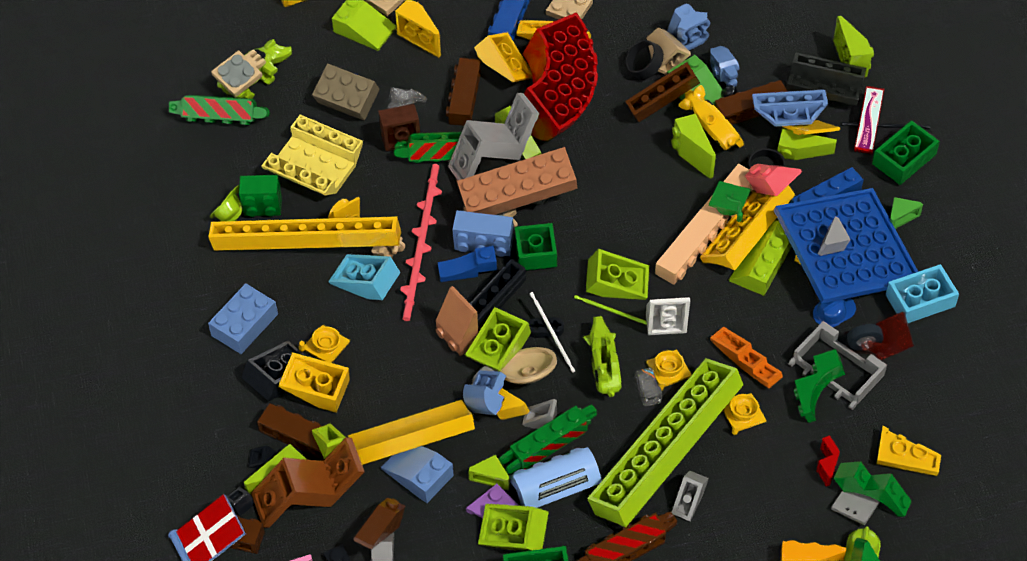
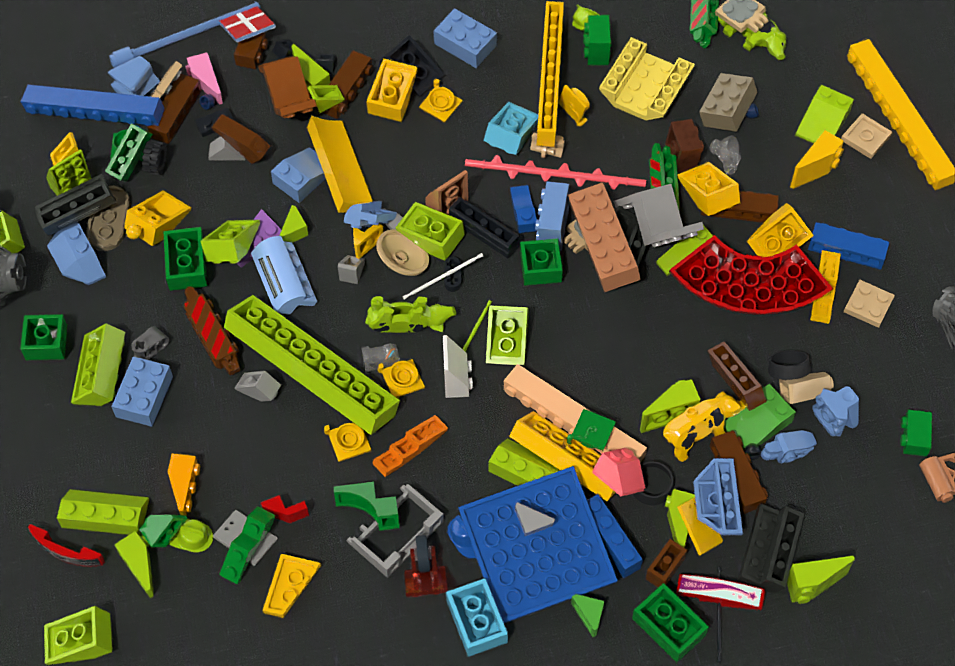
camera: 90 degrees right, 5 degrees up
(455, 104) = (710, 188): none -> yellow slope
(548, 438) = (325, 271): green hinge -> none
(851, 153) = (666, 563): none -> reddish brown brick

